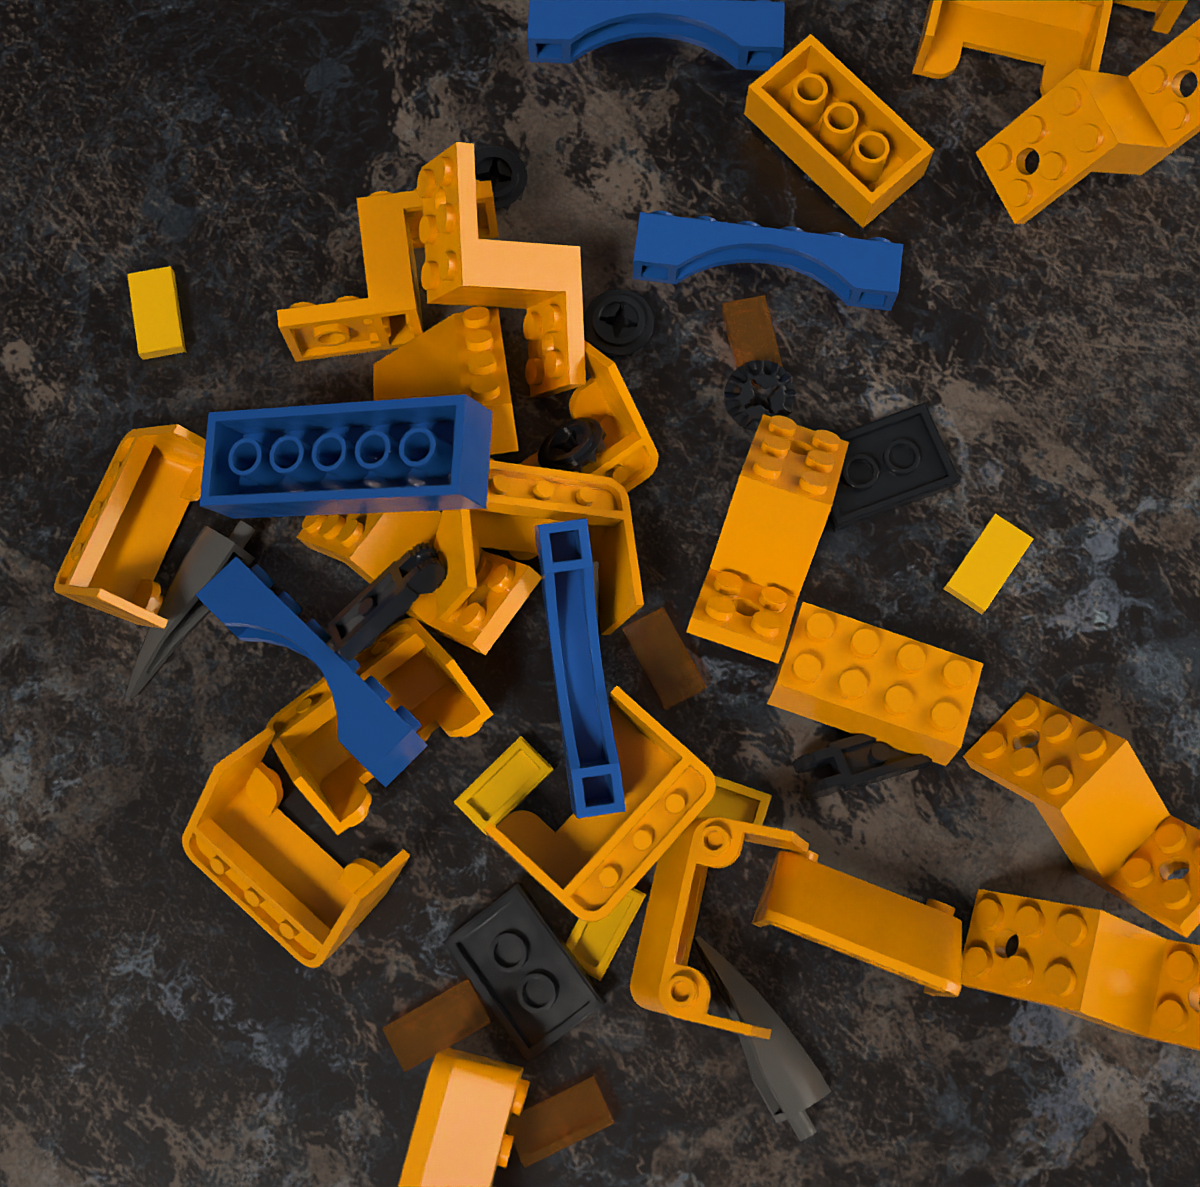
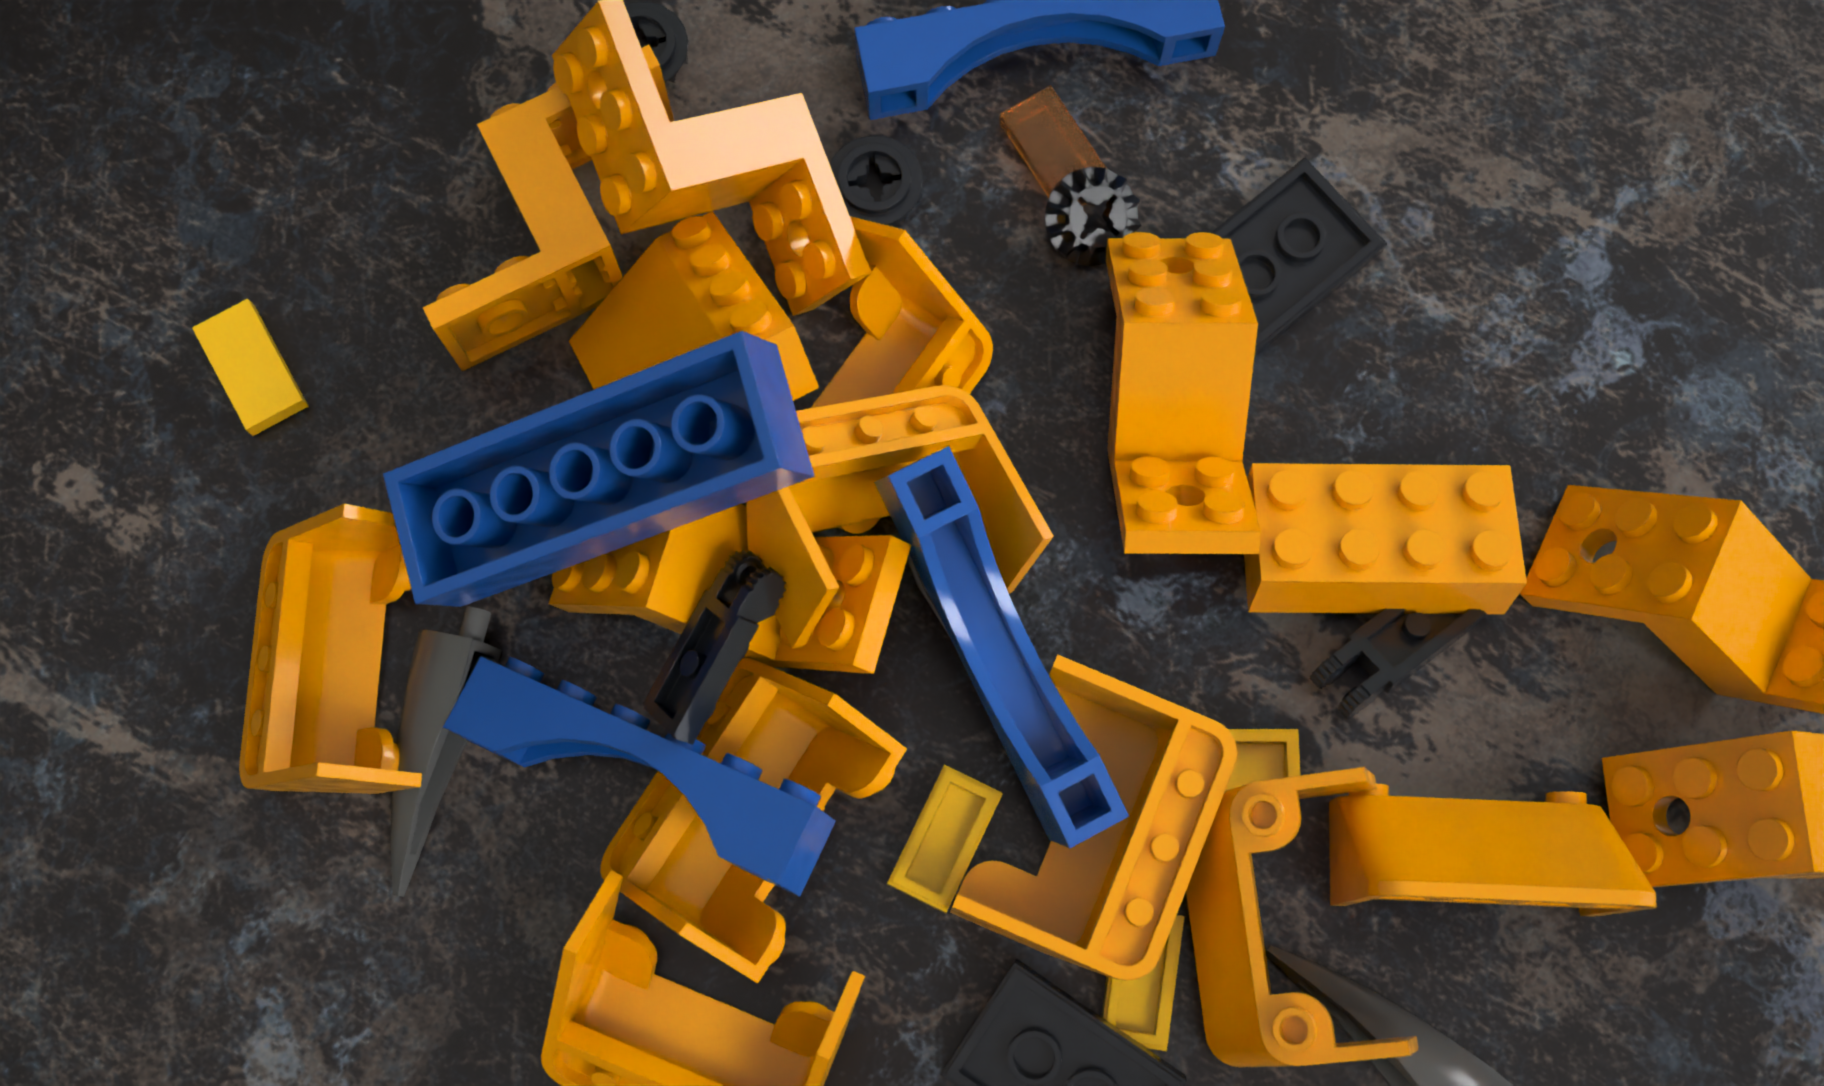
camera: 20 degrees left, 0 degrees up
(572, 445) = (862, 356): black gear -> none
(664, 658) = (1092, 599): clear orange tile -> none
(988, 564) = (1459, 337): yellow tile -> none

